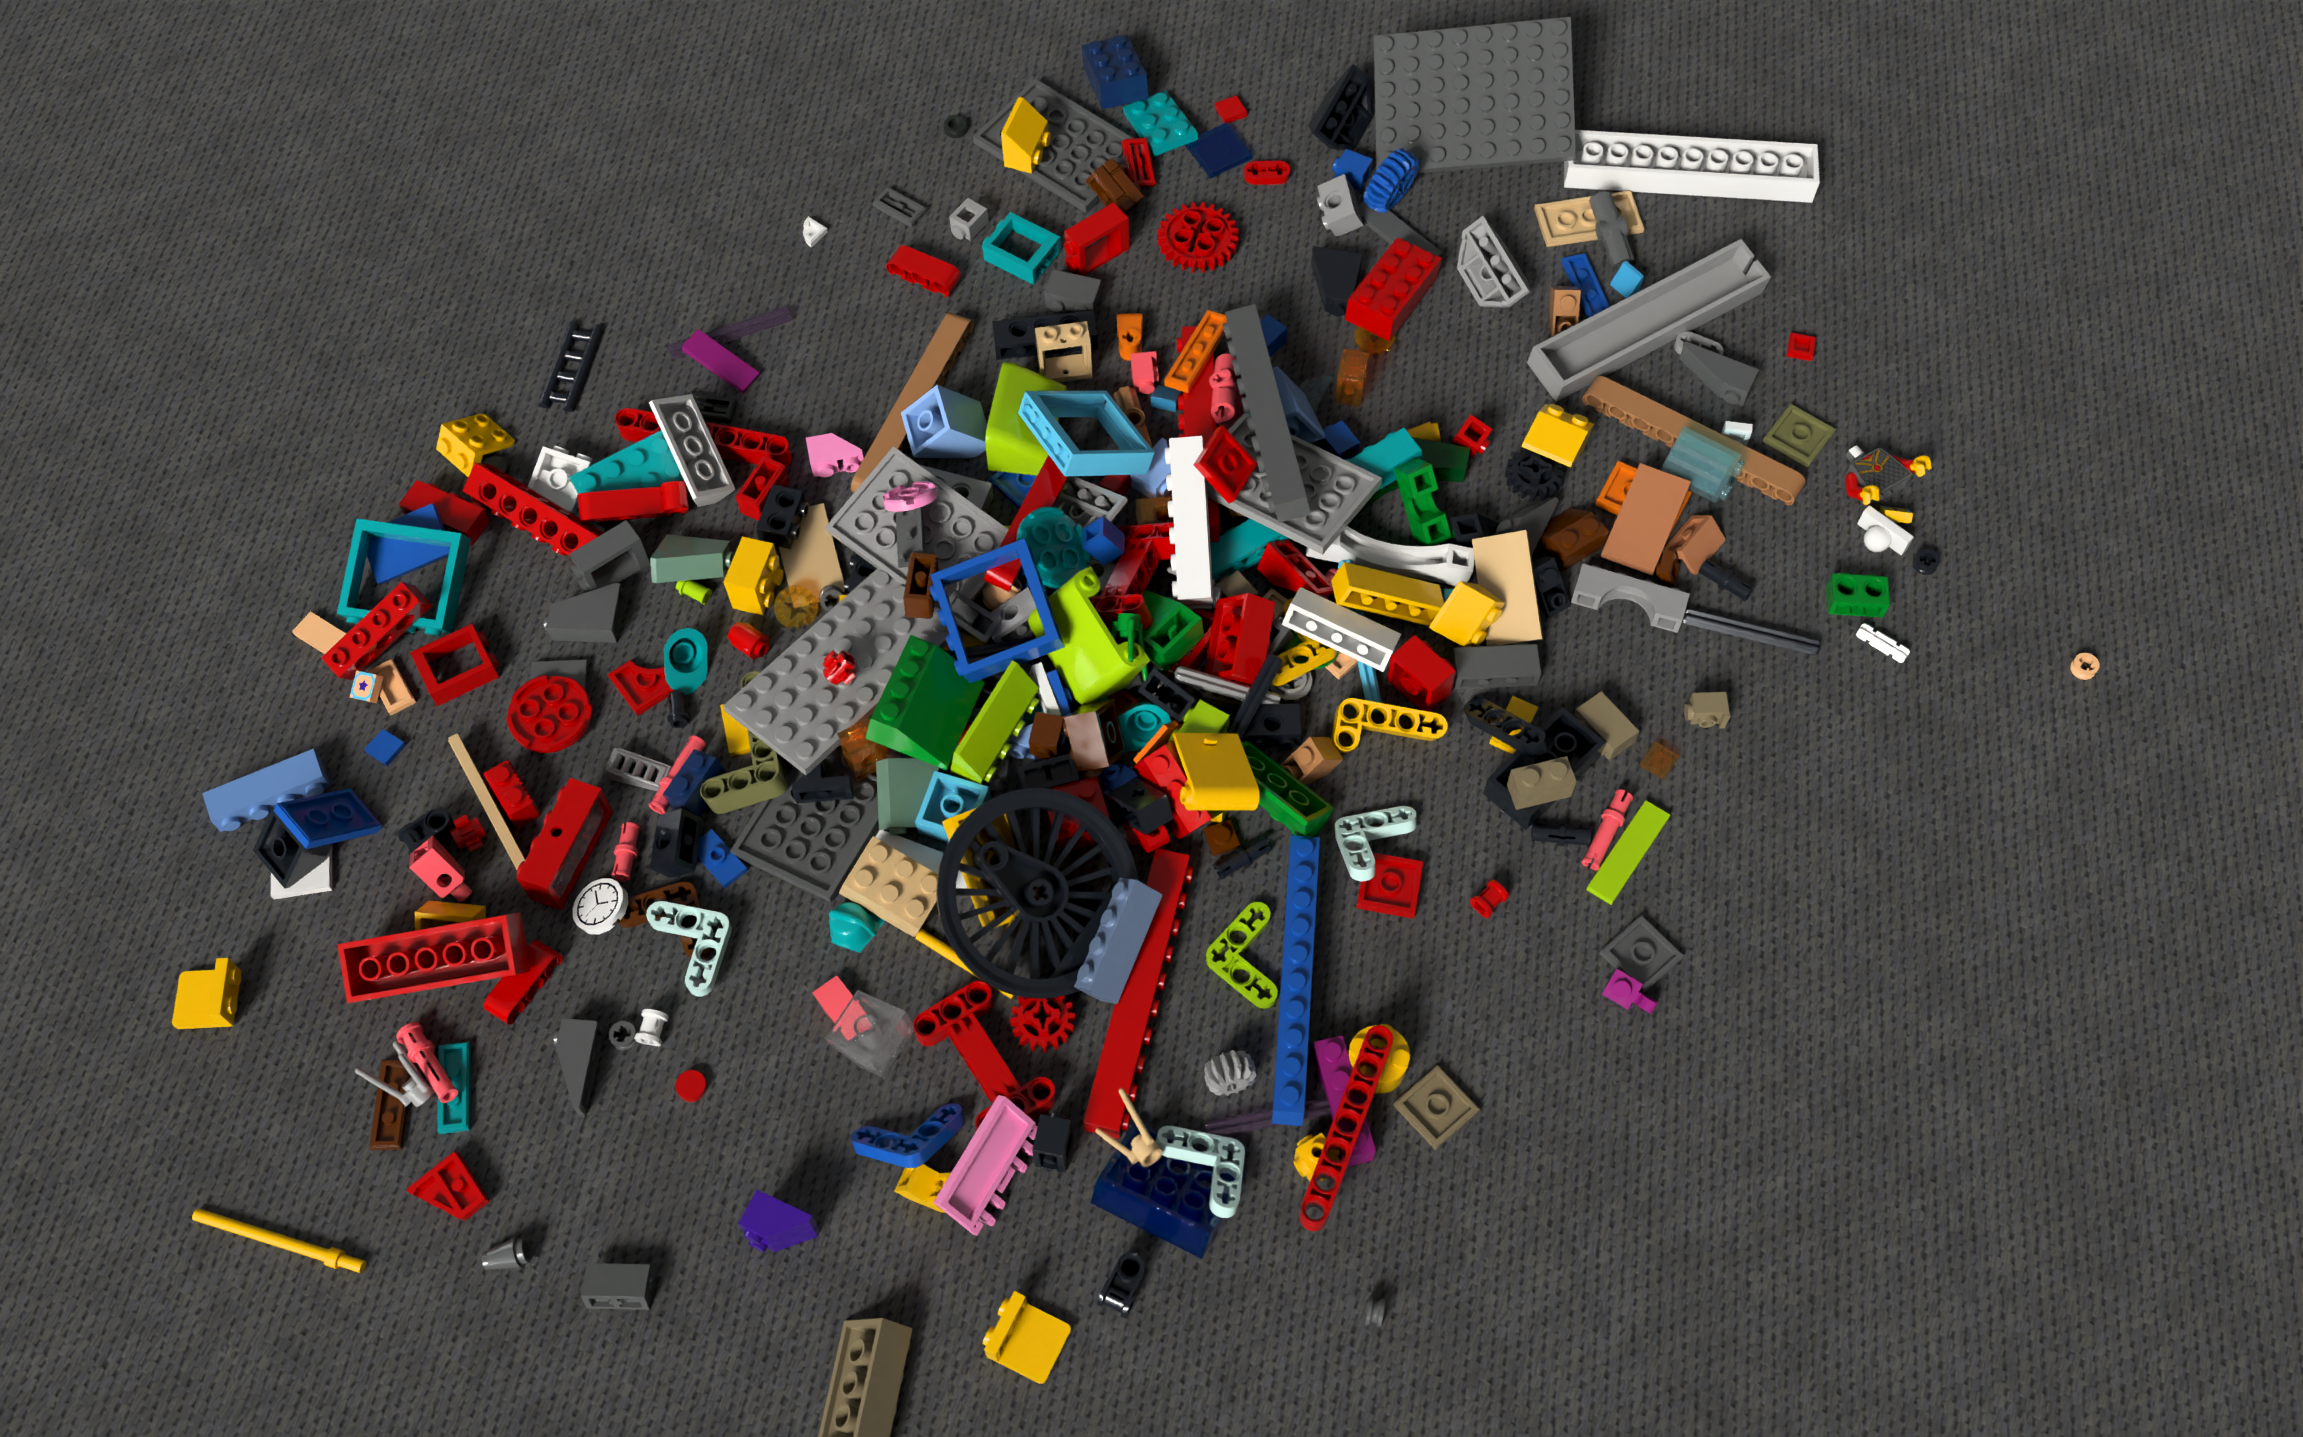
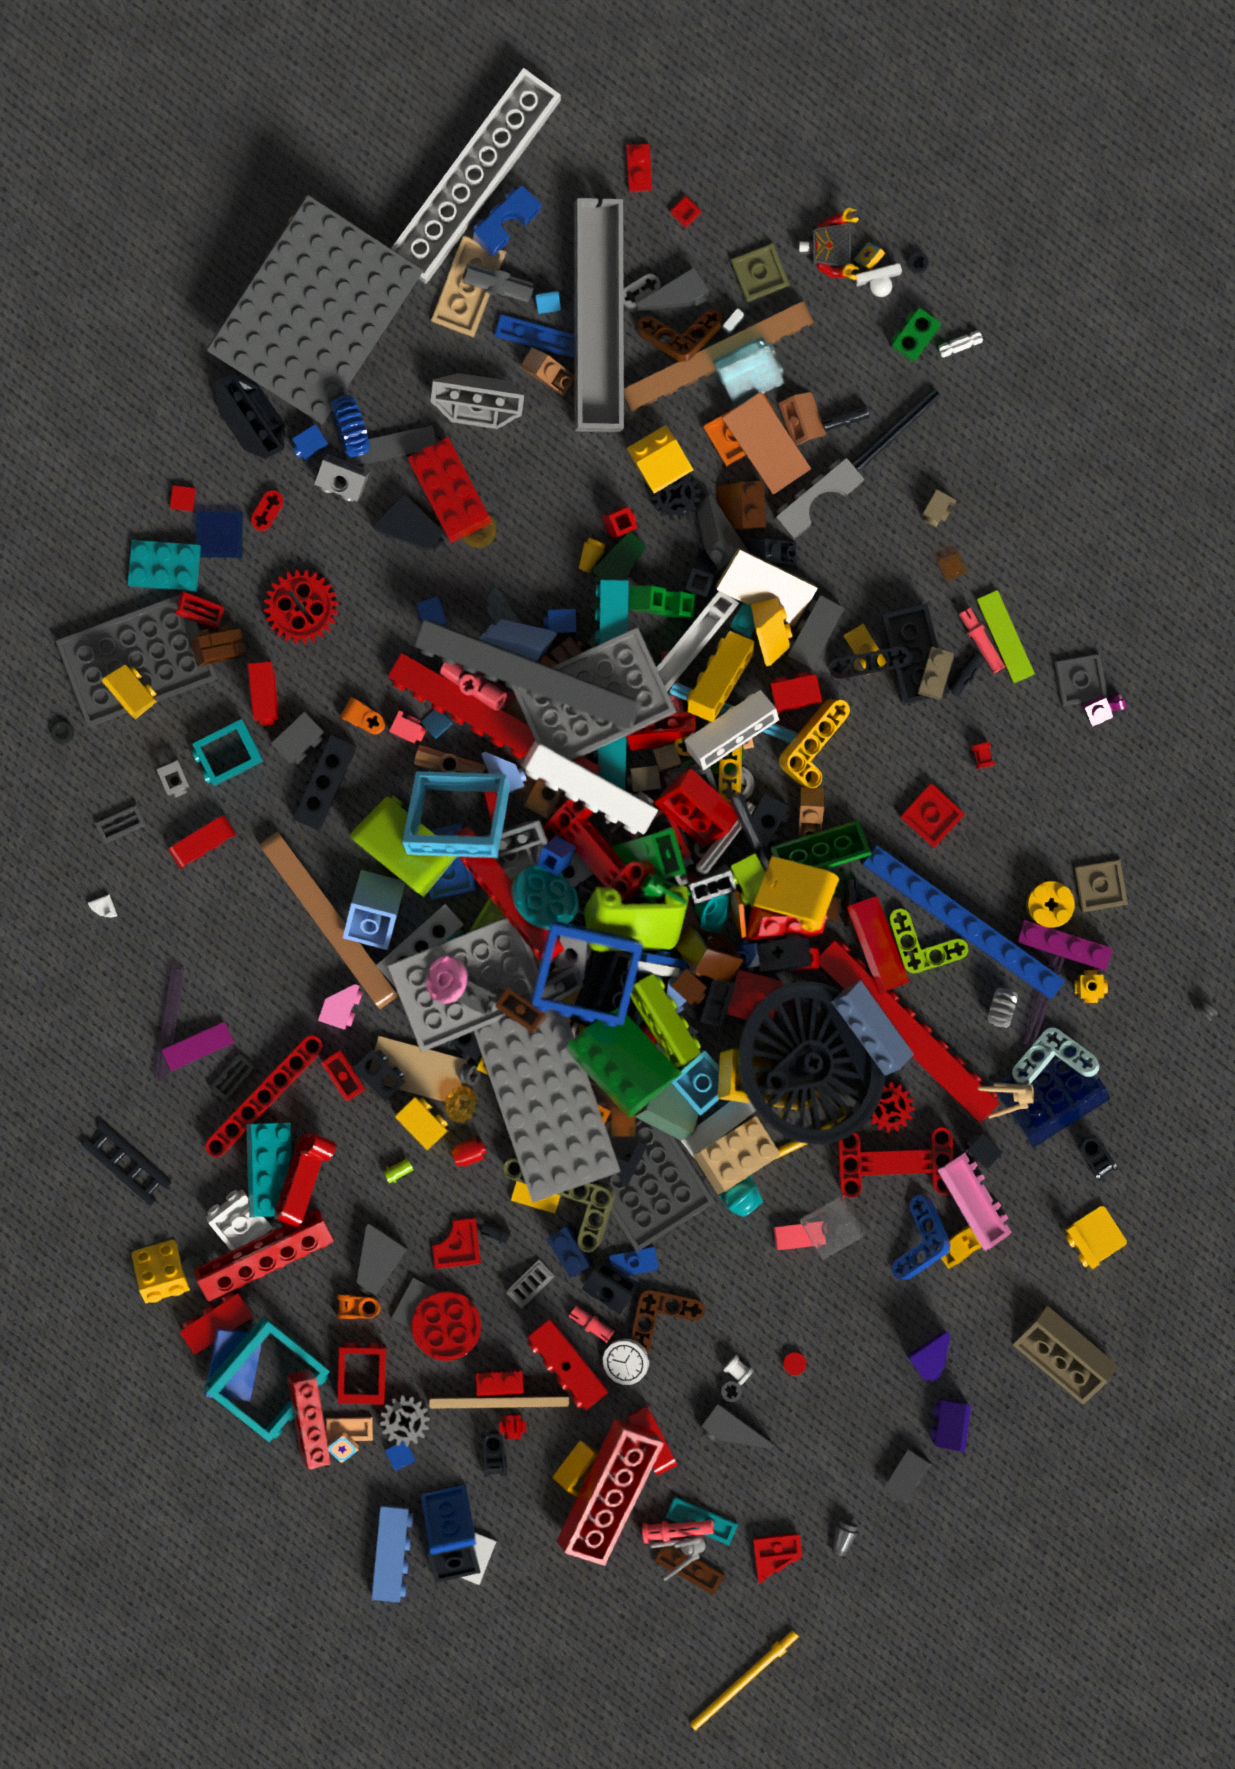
camera: 65 degrees left, 25 degrees up
(207, 997) = (535, 1658): yellow bracket -> none
(318, 632) = (273, 1460): light nougat tile -> none
(424, 729) = (415, 1415): none -> light grey gear
(433, 860) = (542, 1458): coral torso -> none
(526, 624) = (355, 1306): none -> orange piece
(604, 549) = (343, 1222): dark grey window -> none
(659, 803) = (550, 1258): coral pin -> none
(685, 660) = (461, 1207): teal piece -> none
(690, 559) = (375, 1160): sand green slope -> none
(693, 449) = (287, 1113): white slope -> none
(701, 931) = (688, 1302): light aqua beam -> none
(706, 1300) = (951, 1424): none -> dark purple slope
(839, 667) = (557, 1105): red gear -> none
(1077, 365) = (363, 773): tan window -> none
(1115, 72) = (94, 573): dark blue brick -> none
(1196, 352) = (423, 681): orange tile -> none
(1214, 902) = (878, 944): none -> red tile
(1225, 464) = (566, 738): red tile -> none
(1346, 1141) = (1102, 964): red beam -> none
(1350, 834) = (886, 815): light aqua beam -> none
(1352, 377) = (514, 577): clear orange brick -> none
(1608, 723) = (907, 588): dark tan brick -> none
(1668, 569) = (813, 455): reddish brown plate -> none
(1678, 399) = (683, 341): none -> reddish brown beam
(1690, 211) = (518, 205): none -> blue arch
(1807, 290) = (639, 167): none -> red plate
(2090, 671) = (1068, 211): light nougat bush -> none

